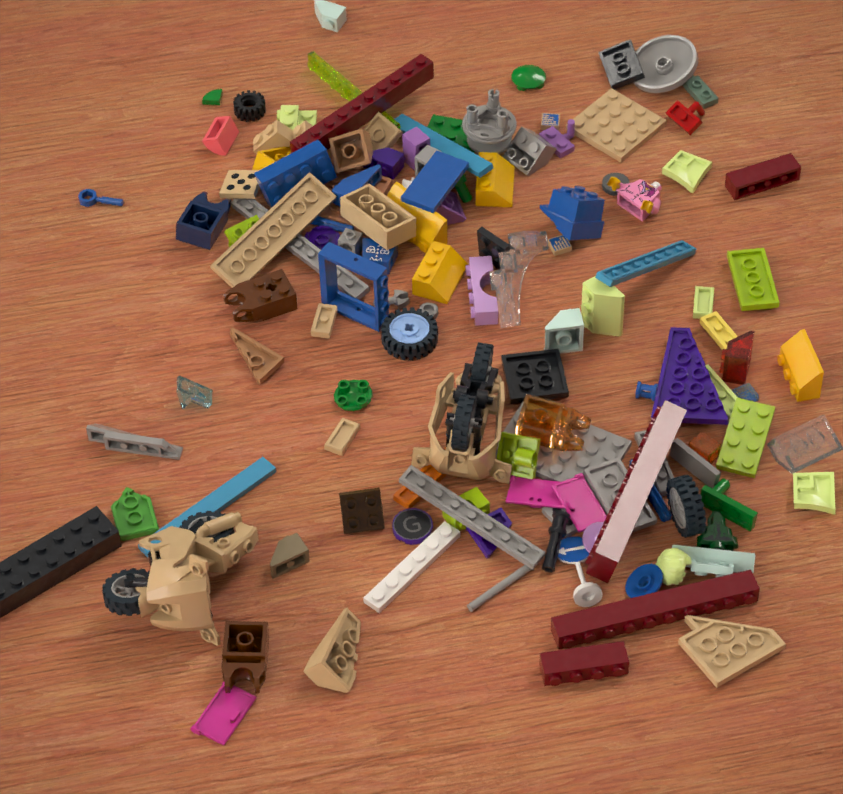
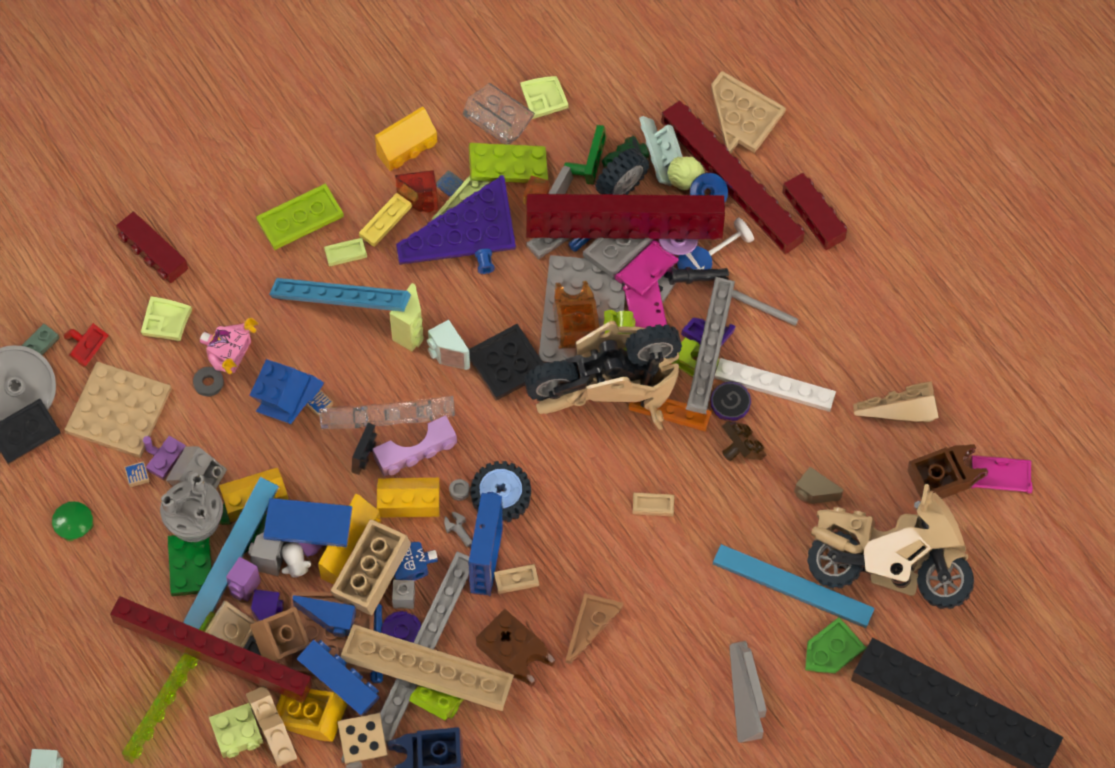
camera: 115 degrees left, 15 degrees up
(190, 391) = (669, 656): clear light blue slope -> none
(353, 394) = (600, 513): green dish -> none

